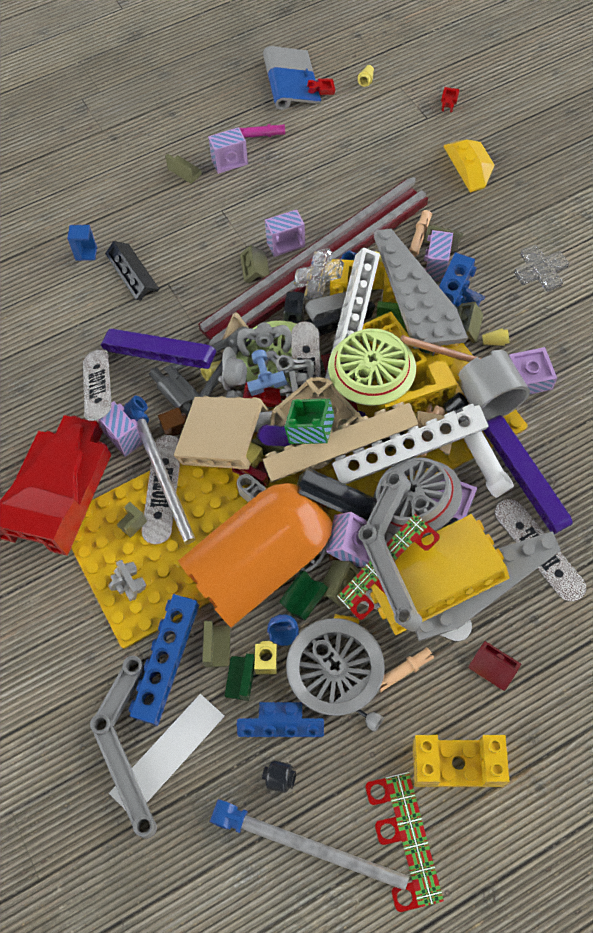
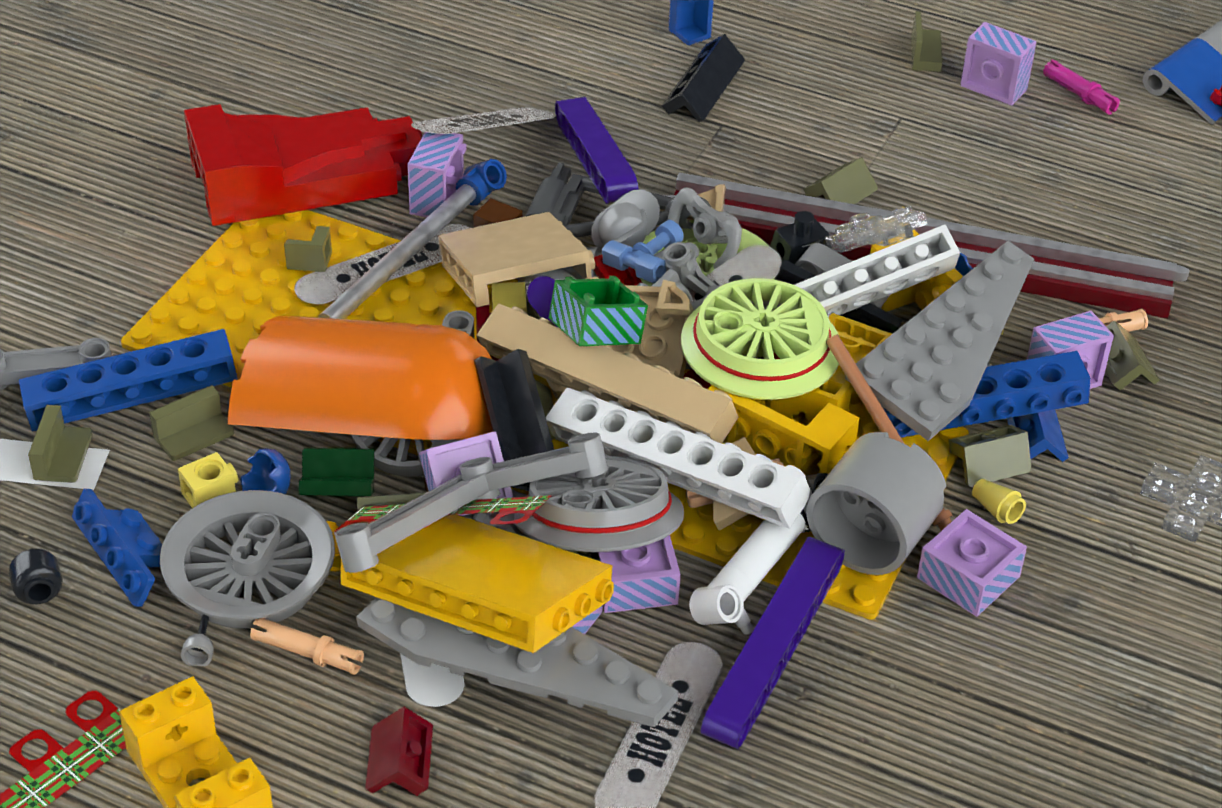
camera: 50 degrees right, 20 degrees down
(123, 581) = (211, 283): light grey hips -> none
(188, 718) = (57, 448): none -> olive panel
(240, 677) = (157, 478): dark green panel -> none
(285, 233) = (921, 178): lavender container -> none

